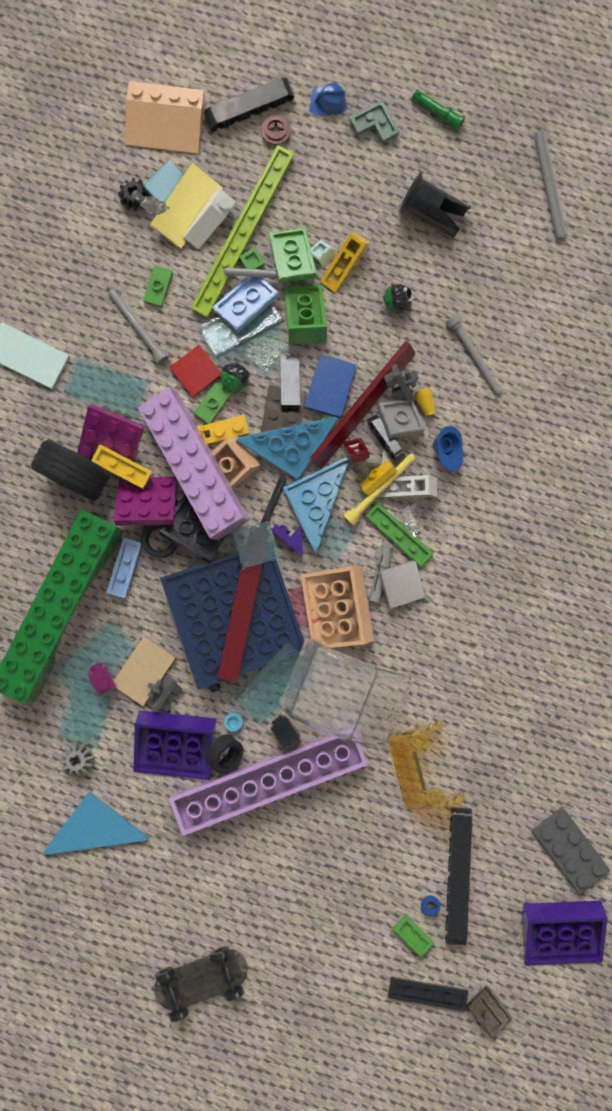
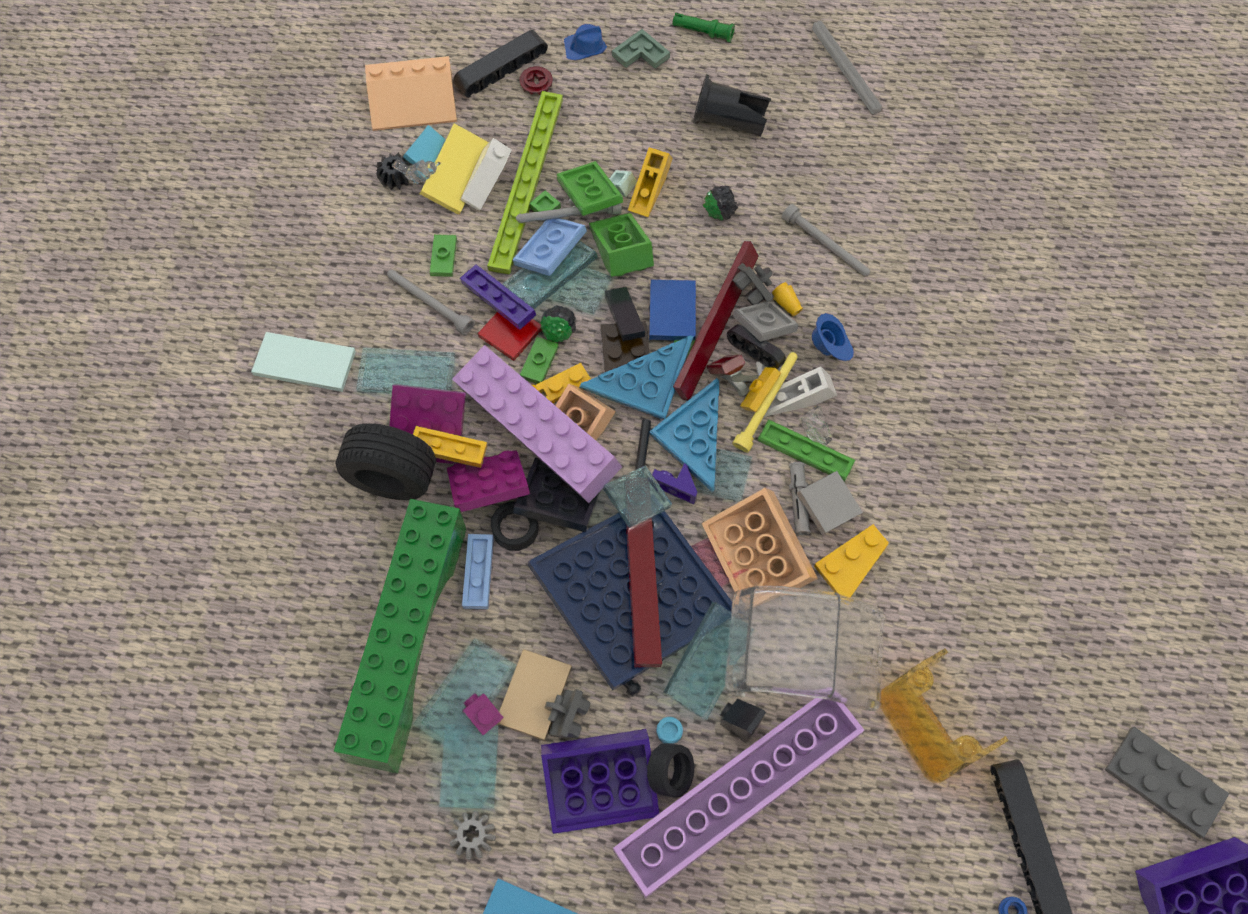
camera: 10 degrees left, 20 degrees down
(192, 340) = (498, 296): none -> dark purple plate
(403, 633) = (852, 561): none -> yellow wing

